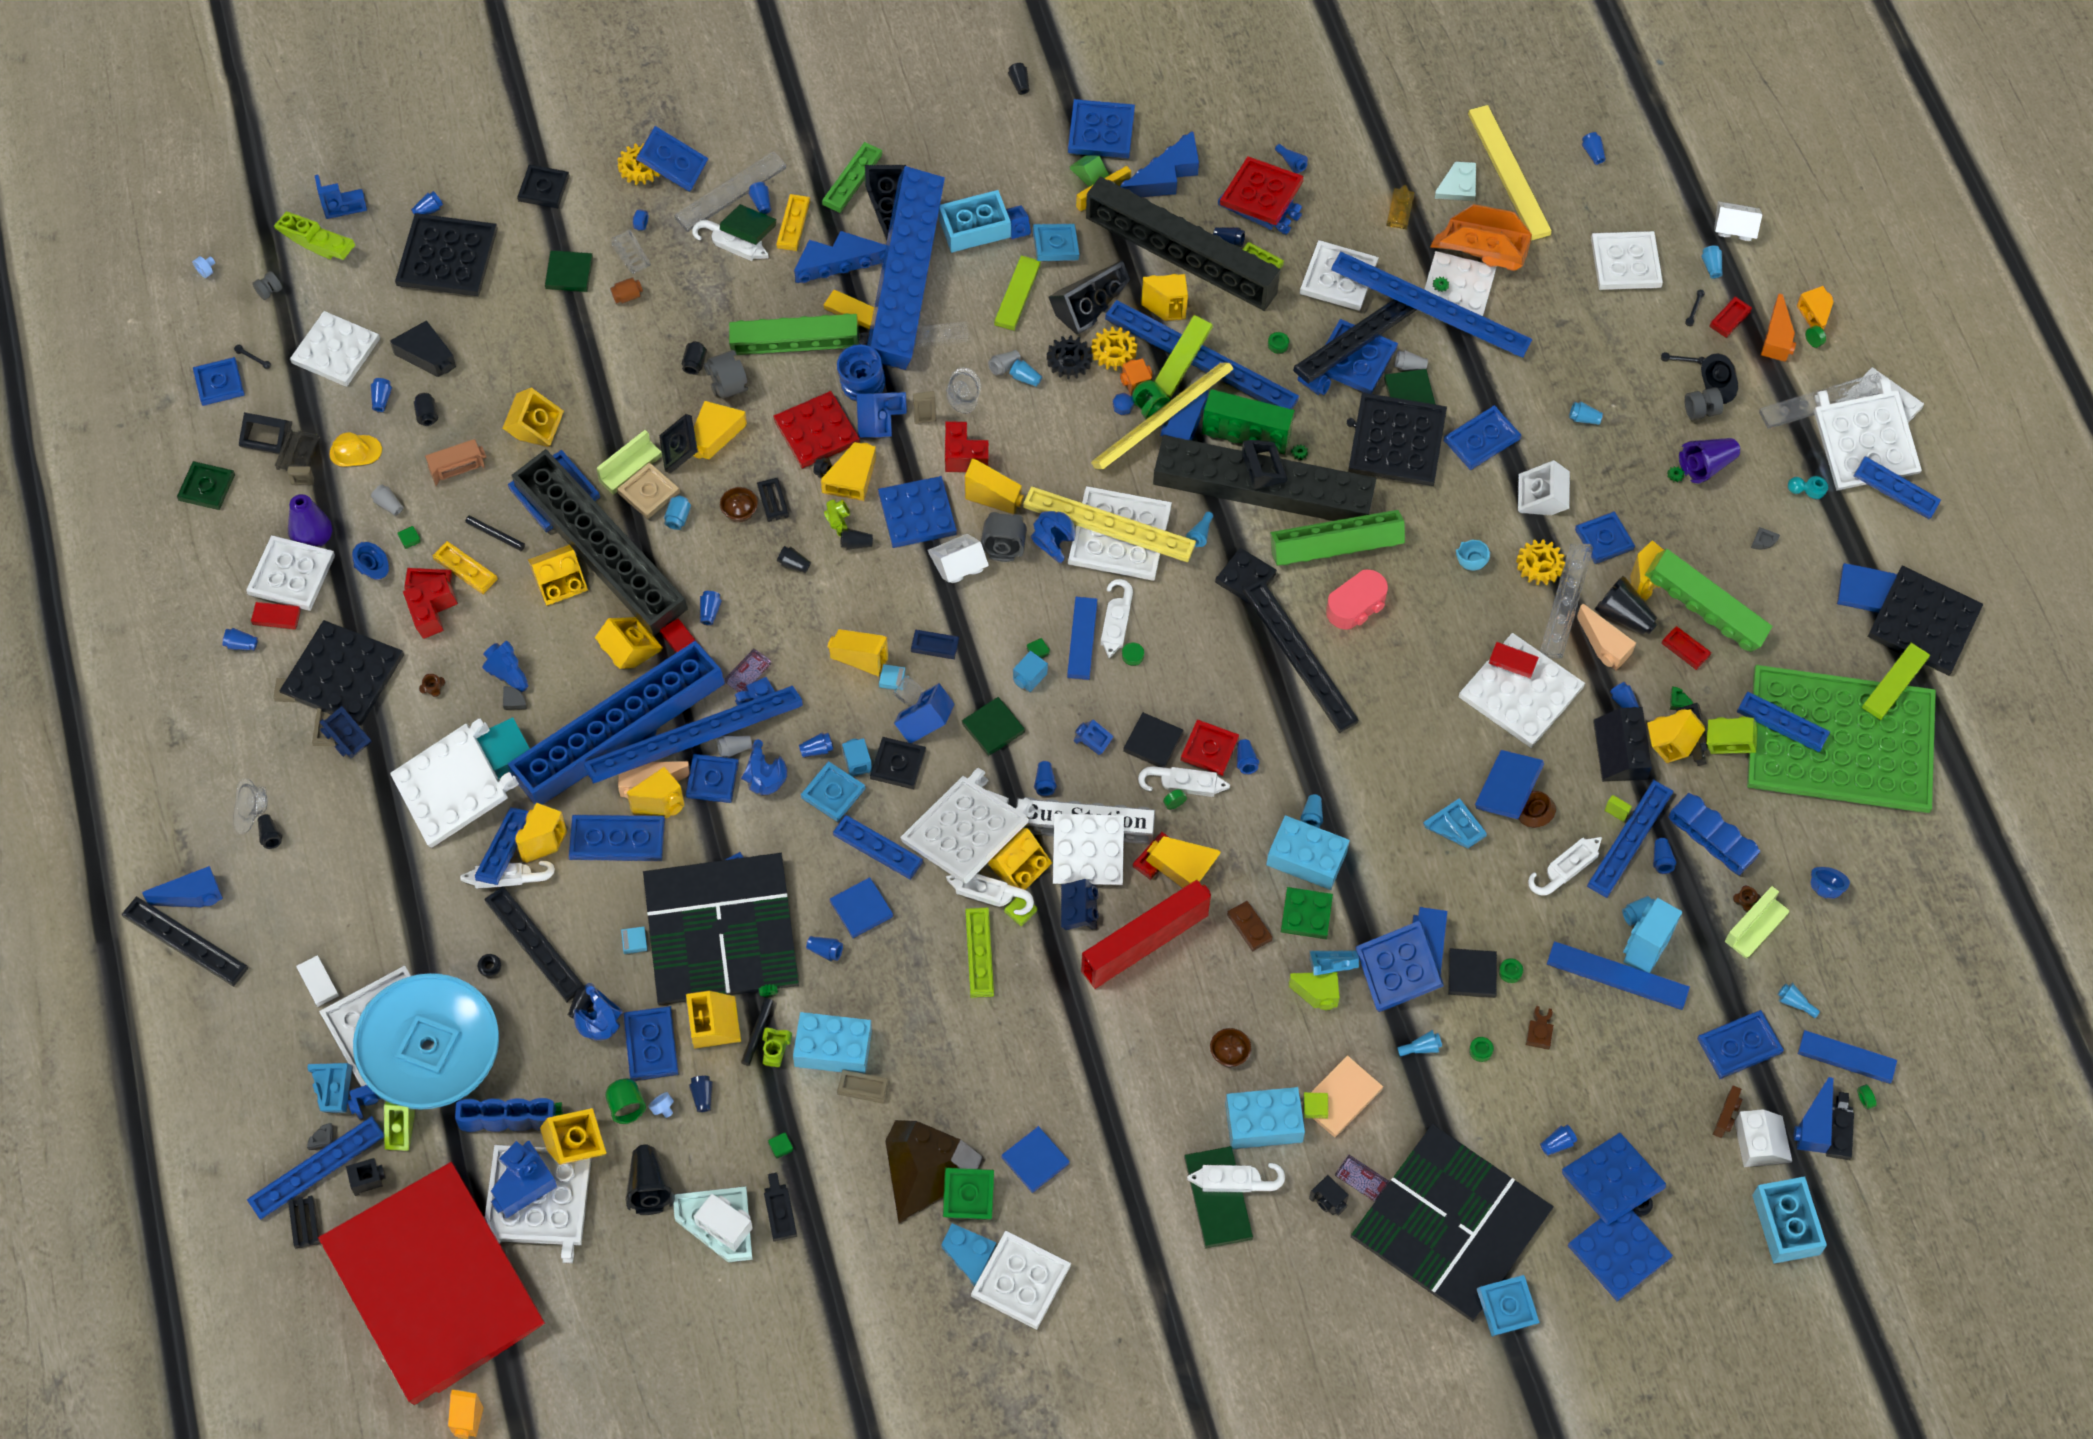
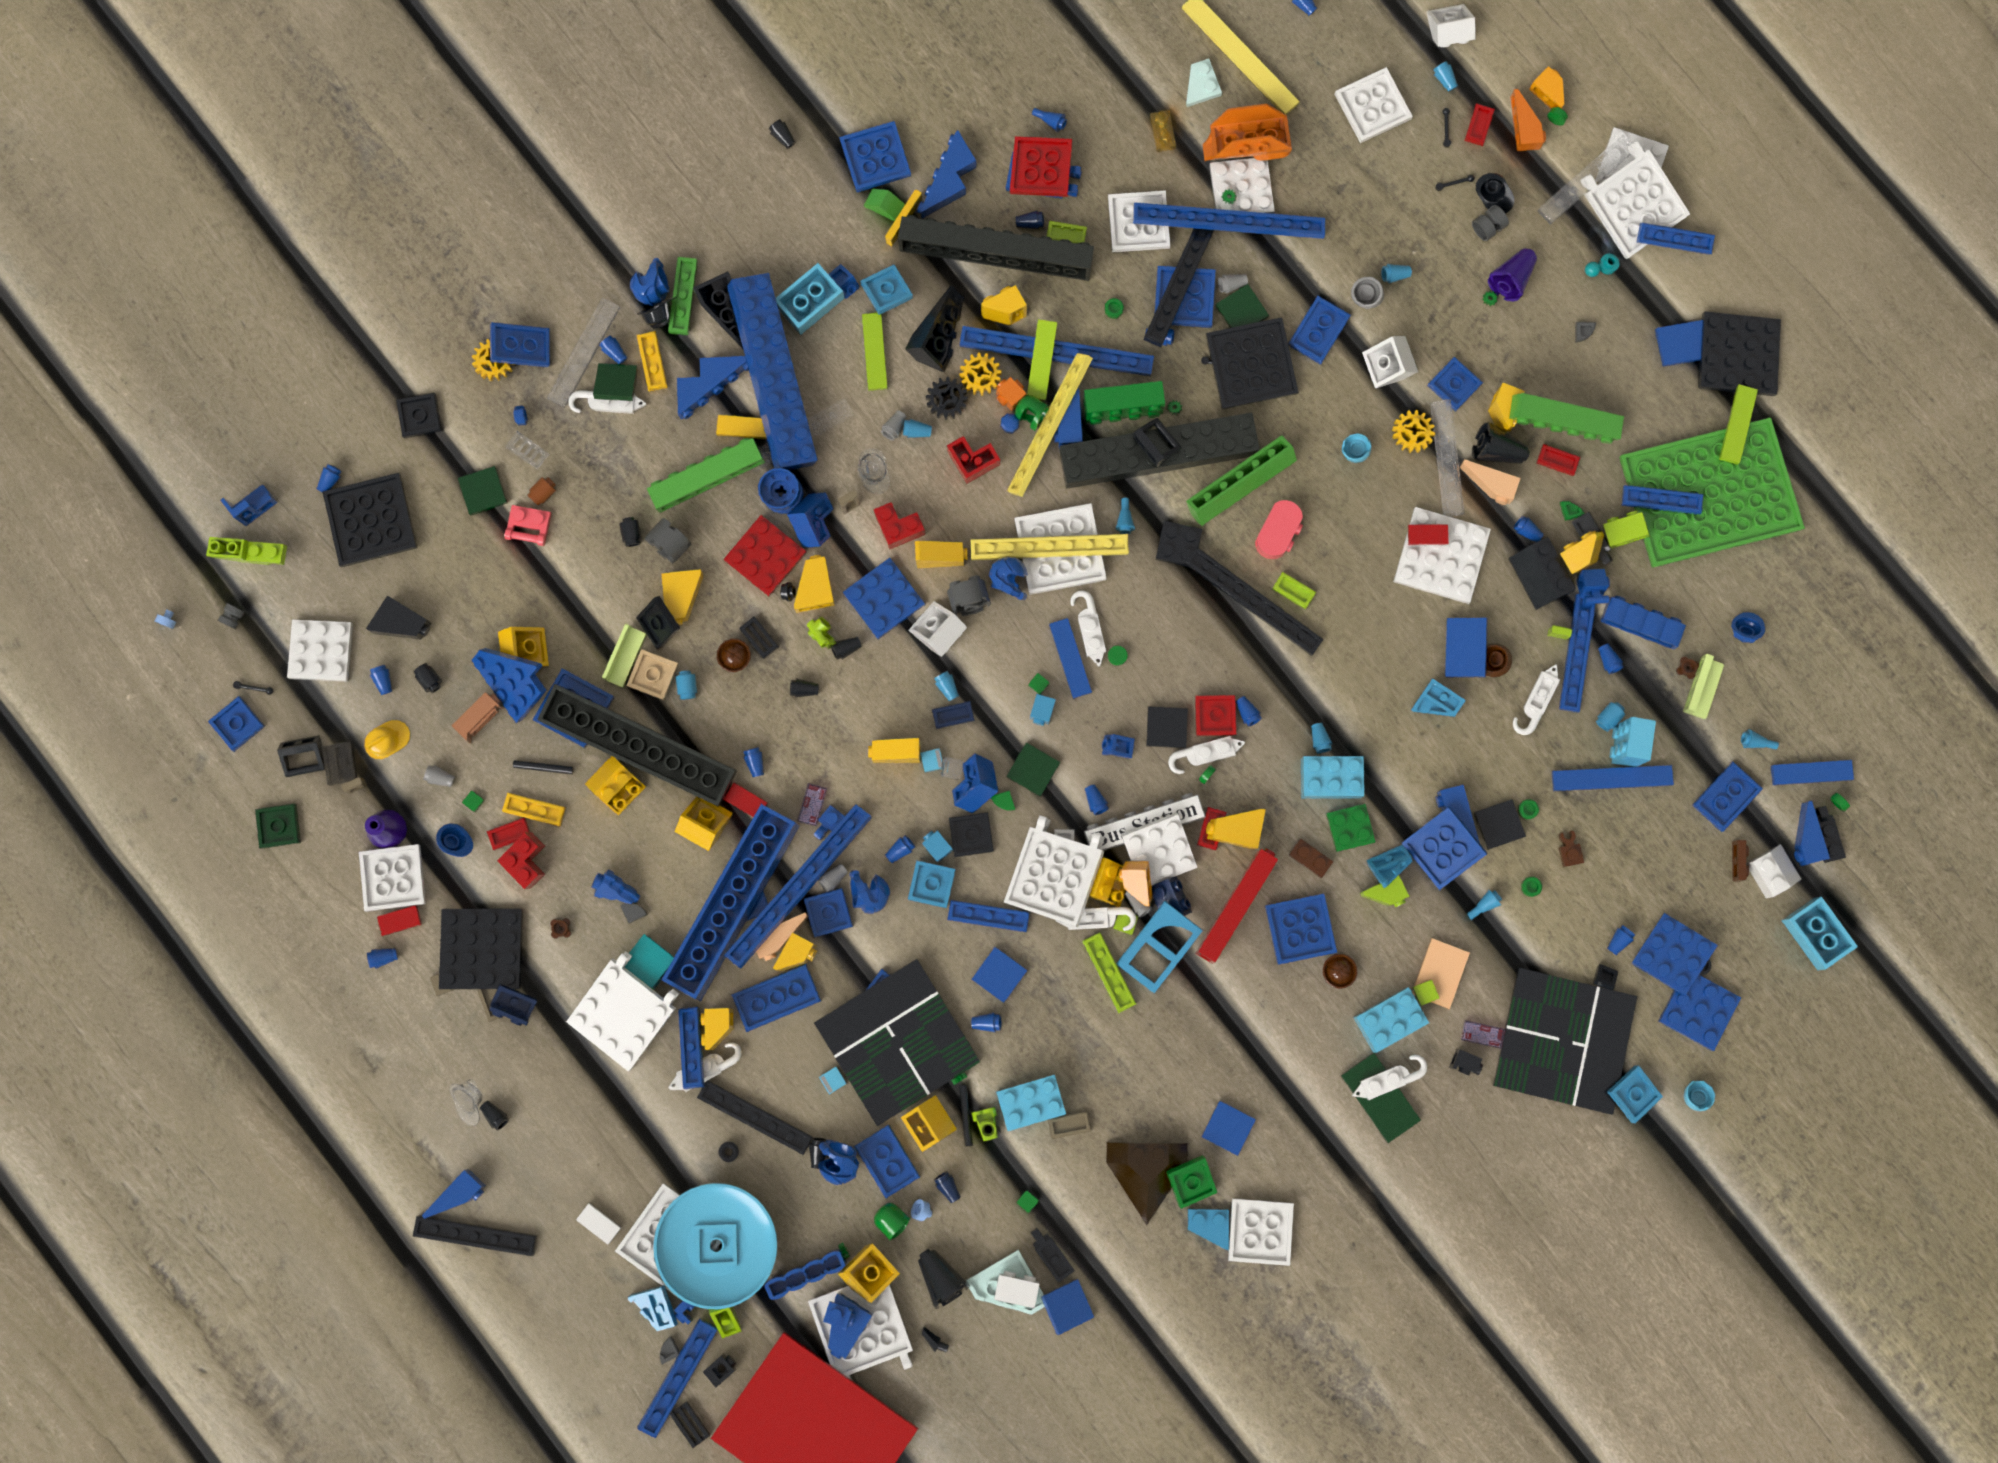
camera: 20 degrees left, 20 degrees up
(505, 438) = (511, 680): none -> blue wing
(599, 311) = (528, 519): none -> coral plate
(608, 1246) = (934, 1341): none -> black bar
(770, 1268) = (1067, 1307): none -> blue tile
(821, 179) = (658, 315): none -> black piece
(826, 155) = (651, 287): none -> blue helmet
(941, 612) = (946, 685): none -> dark azure cone
(948, 743) = (1004, 801): none -> green tile
(1043, 896) = (1138, 908): none -> light grey cone
(1051, 866) = (1137, 880): none -> slope
(1063, 914) = (1164, 916): none -> dark azure window
(1069, 421) = (970, 463): none -> red brick
(1206, 989) = (1300, 929): none -> blue plate
(1348, 664) = (1294, 590): none -> lime tile
(1525, 1172) = (1605, 977): none -> black tile
(1547, 418) = (1367, 292): none -> light grey hat
(1581, 1337) = (1699, 1095): none -> medium azure hair
(1674, 774) = (1592, 586): none -> blue brick

